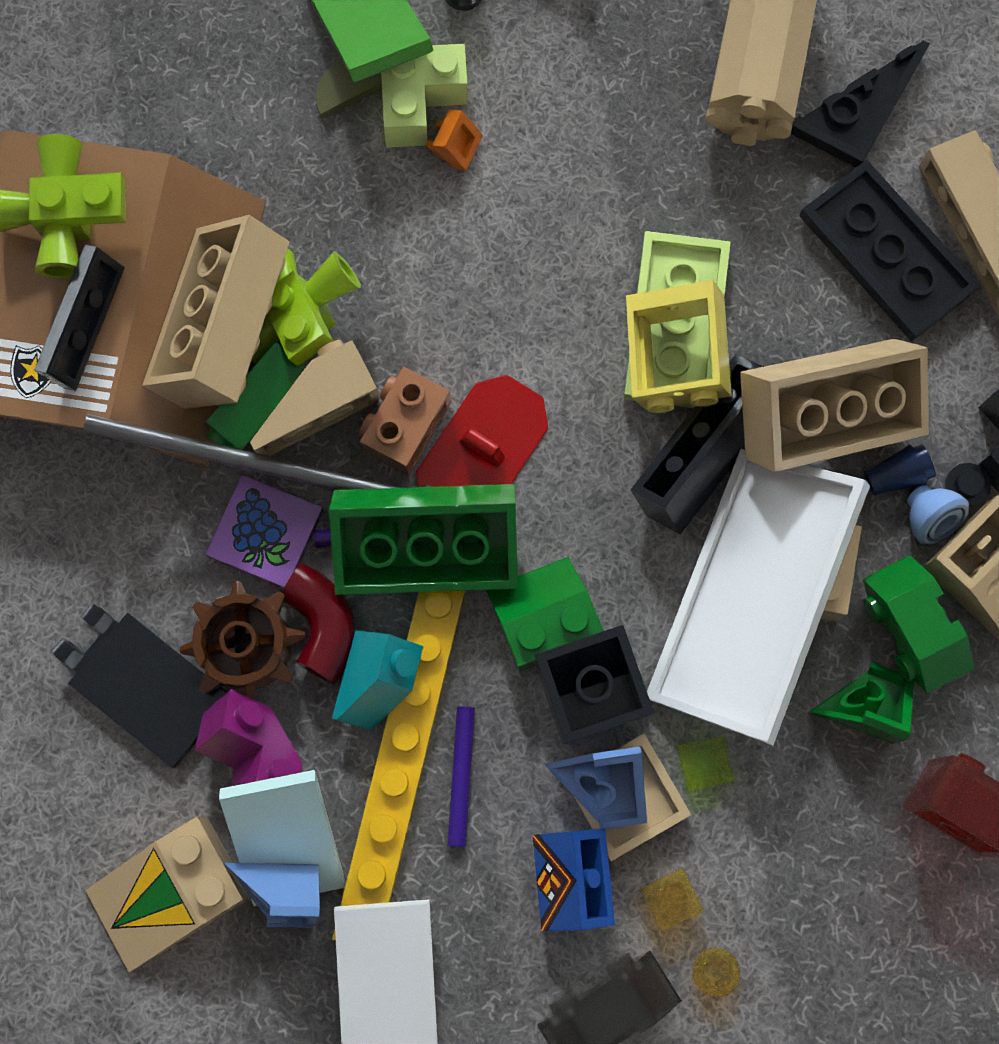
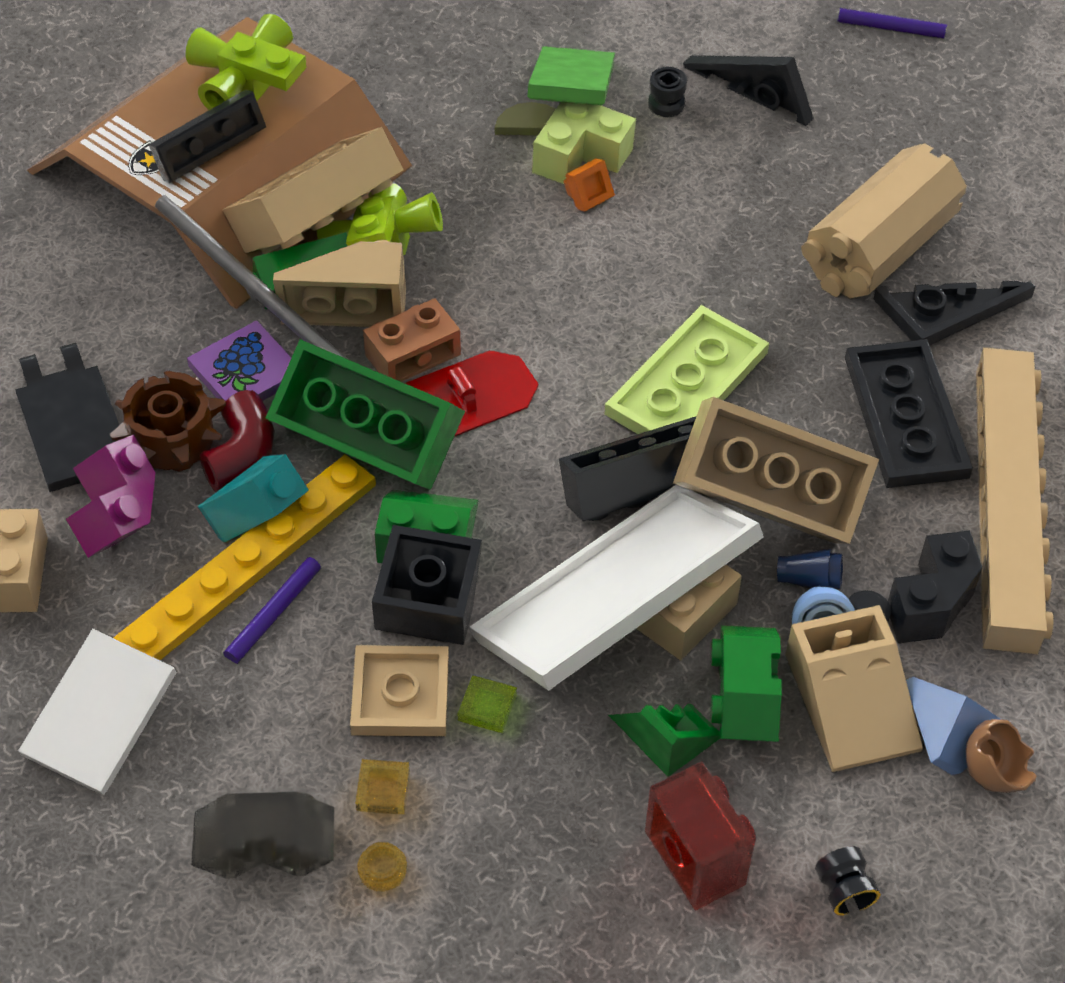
camera: 25 degrees right, 25 degrees down
(282, 891) = (62, 607): medium blue slope -> none
(283, 824) = (93, 559): light aqua tile -> none
(573, 880) = (307, 718): blue brick -> none
(606, 785) = (390, 653): medium blue slope -> none
(672, 305) = (658, 345): light yellow window -> none

